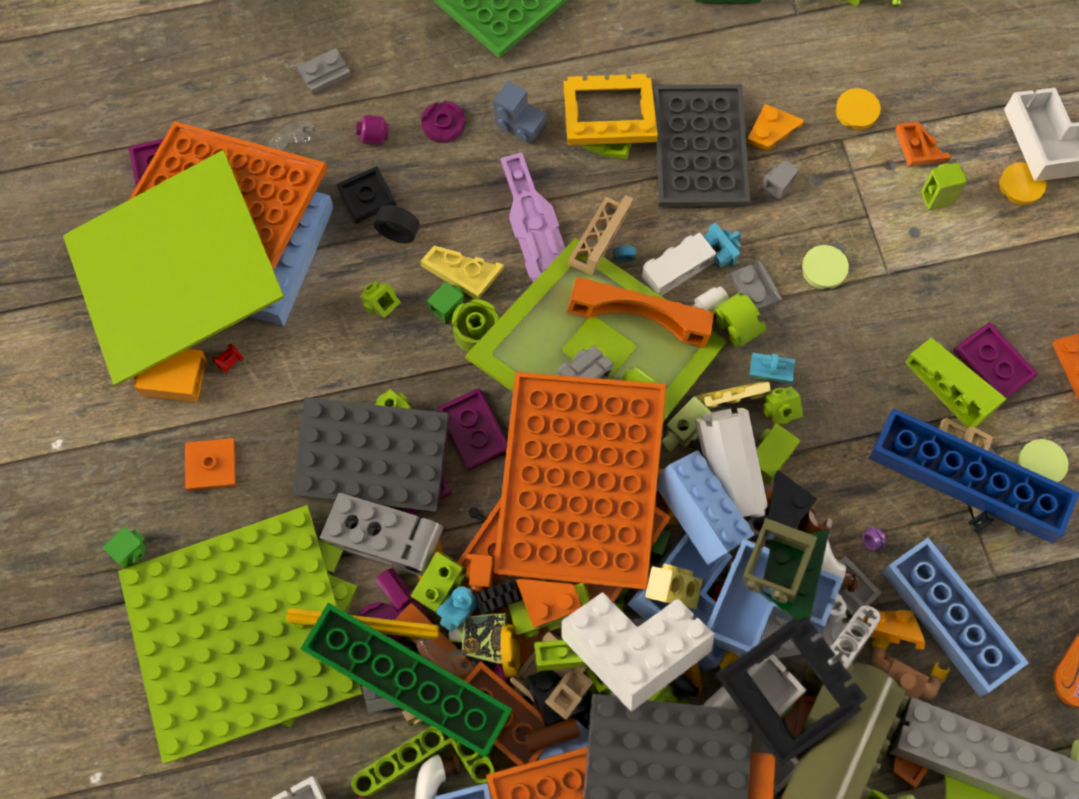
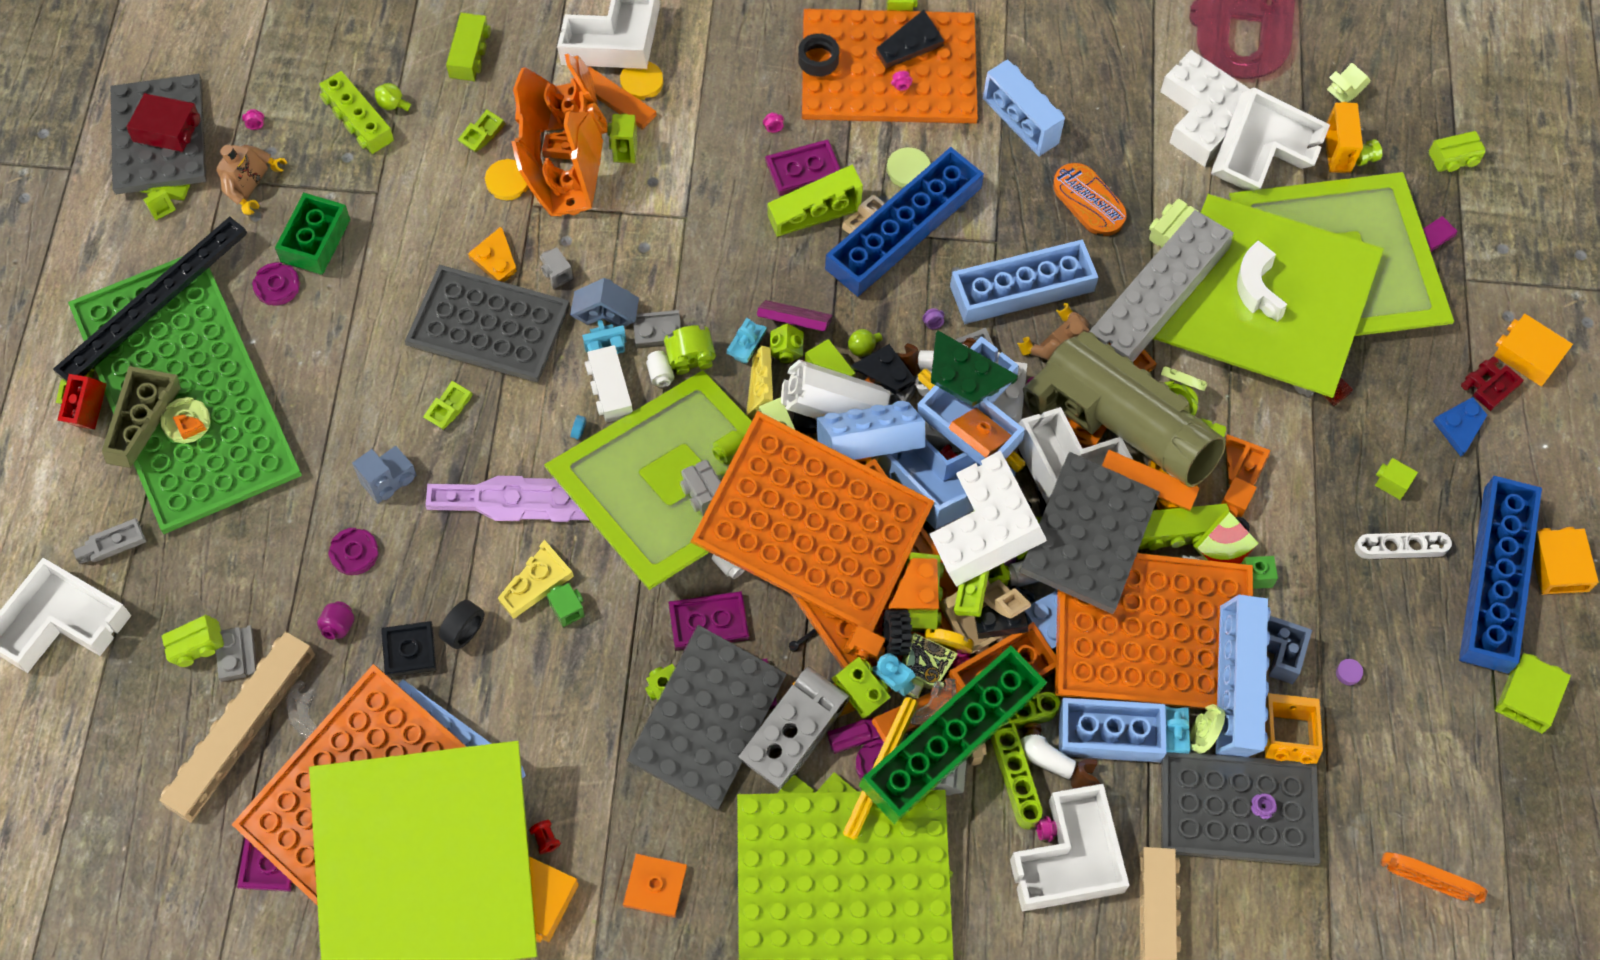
camera: 75 degrees left, 5 degrees down
(260, 95) = (236, 727): none -> tan brick
(319, 34) = (193, 641): none -> lime brick
(379, 299) = (539, 665): lime brick -> none
(468, 318) = (616, 584): lime brick -> none
(552, 735) = (1038, 627): reddish brown piece -> none
(603, 237) = (545, 424): tan fence -> none
(610, 131) = (439, 401): yellow hinge -> none
(674, 583) = (937, 480): light yellow brick -> none
(686, 322) = (676, 394): orange arch -> none
(736, 611) = (980, 432): none -> orange plate
(758, 231) = (604, 301): none -> sand blue brick
(760, 711) = (1069, 444): black hinge -> none
(786, 536) = (936, 359): olive window -> none
(816, 402) = (794, 315): none -> magenta tile
(816, 477) = (863, 342): none -> lime piece
(825, 267) = (659, 264): yellowish green tile -> none
(854, 642) = (1028, 358): white beam -> none
(893, 69) = (481, 132): none -> lime slope
(898, 626) = (1018, 329): light orange wing -> none
(931, 116) = (560, 107): none -> orange piece
(981, 521) = (945, 231): black bush -> none
(983, 25) = (468, 47): none -> lime brick
(991, 168) = (621, 100): none -> orange tile
(1032, 317) = (773, 122): none -> dark pink plate

